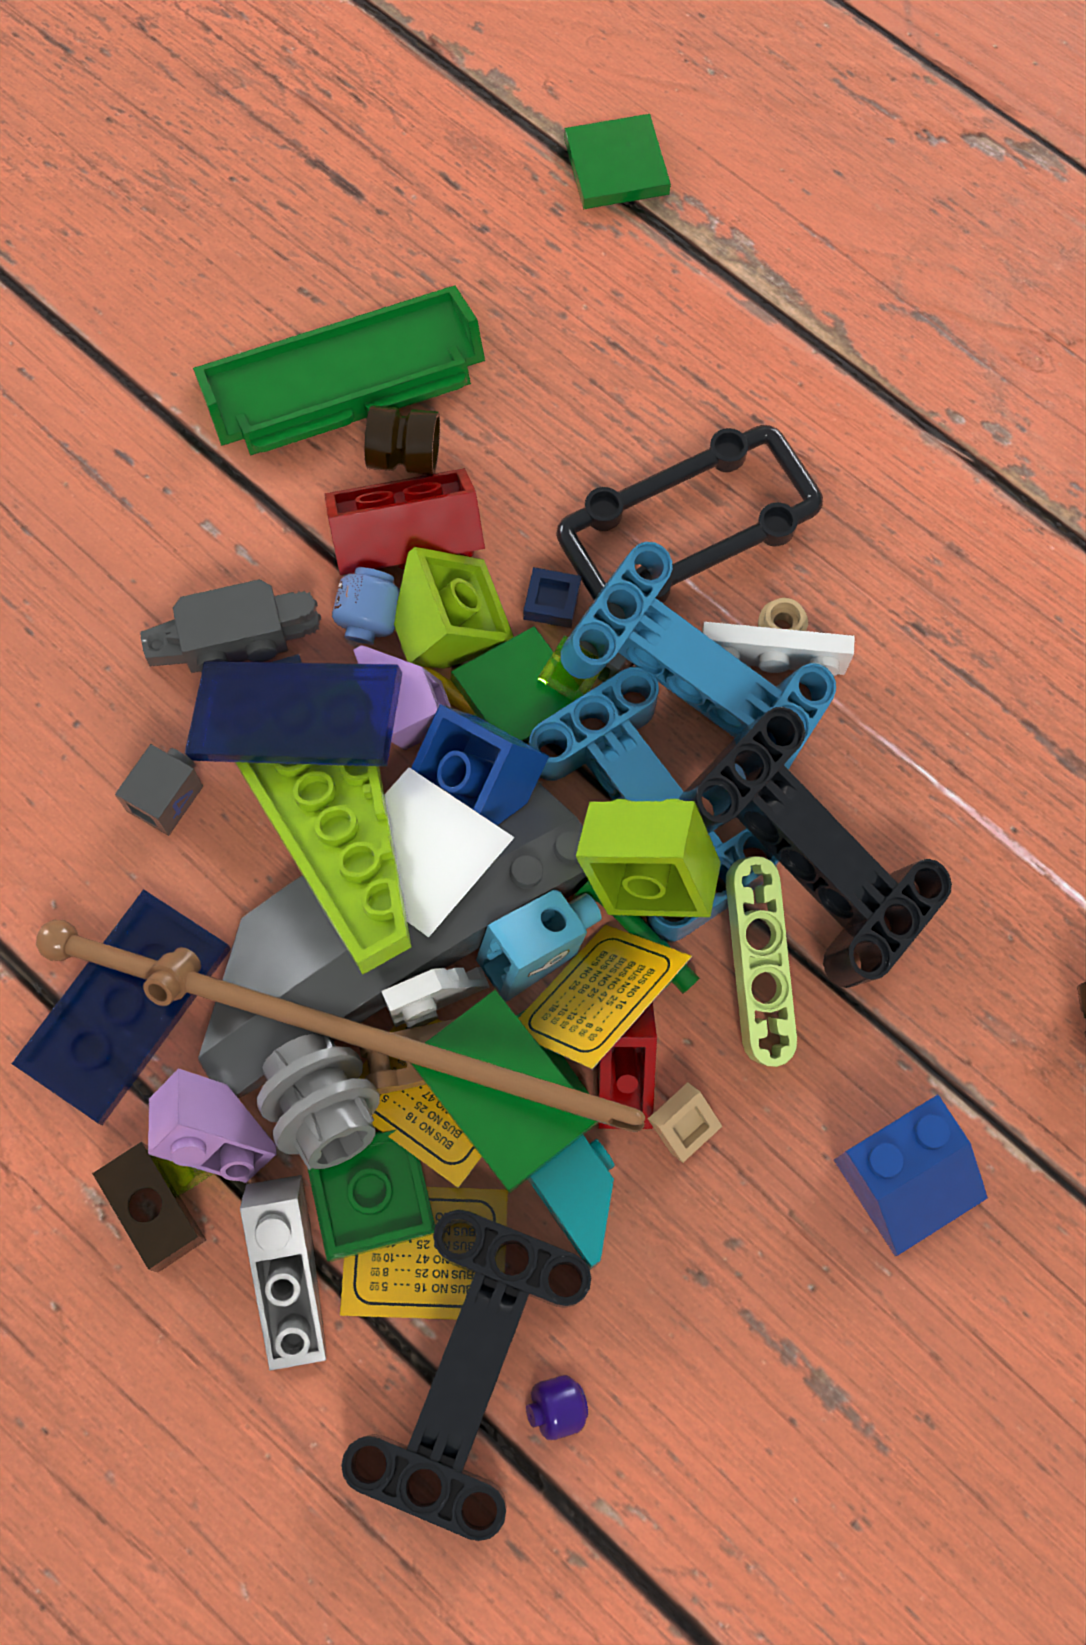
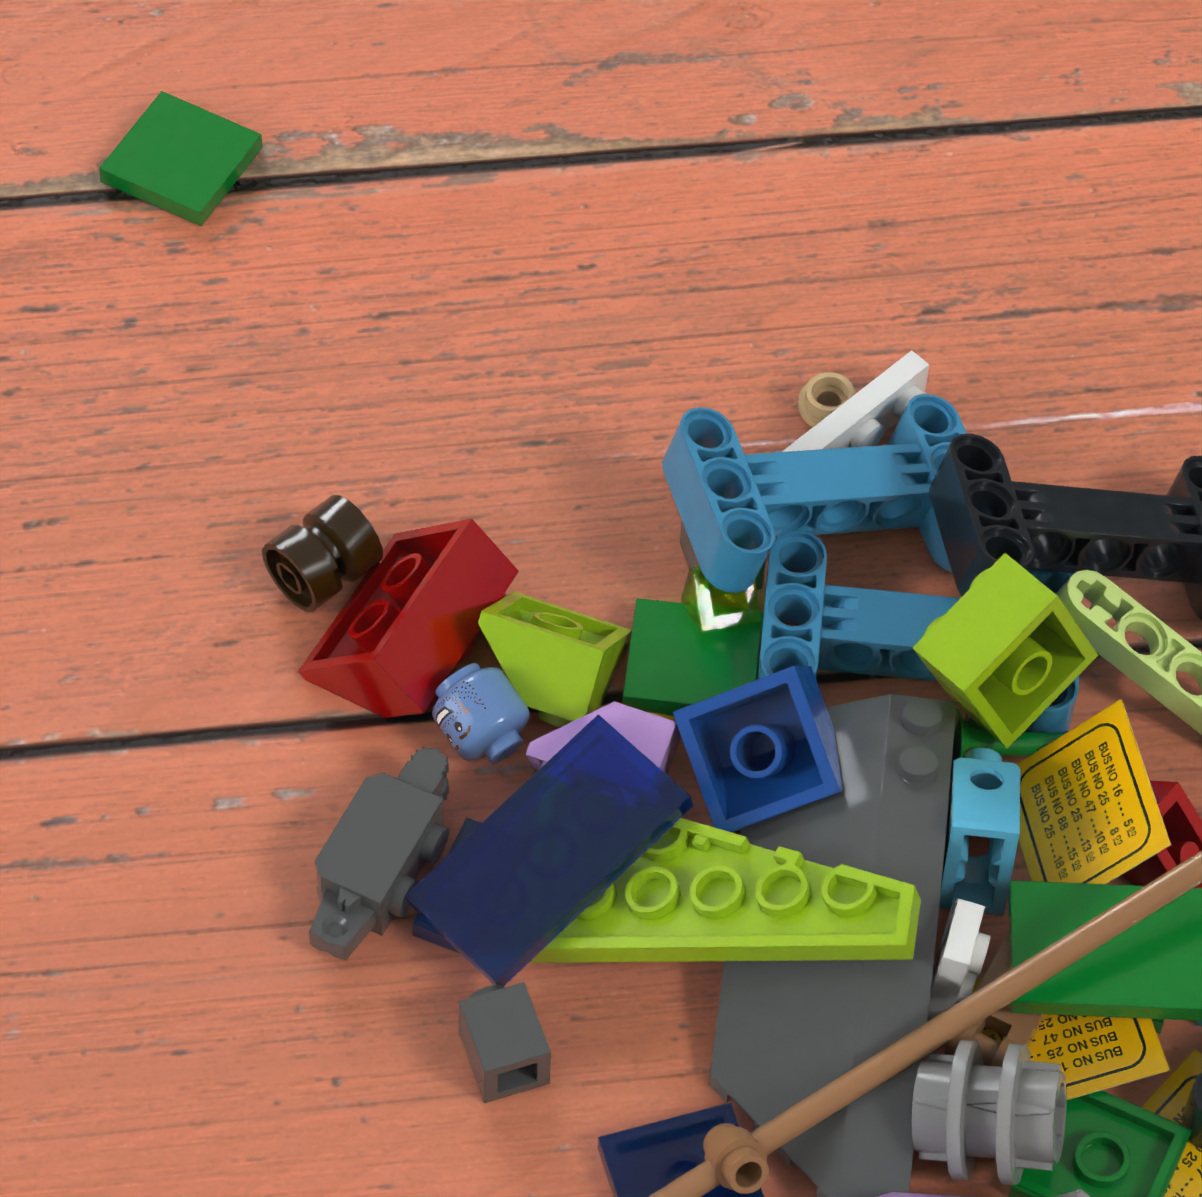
camera: 50 degrees left, 15 degrees down
(341, 370) = (172, 557): green slope -> none
(437, 848) = (829, 810): white sticker -> none
(552, 597) = (621, 561): dark blue plate -> none
(726, 453) = (606, 312): black bar -> none

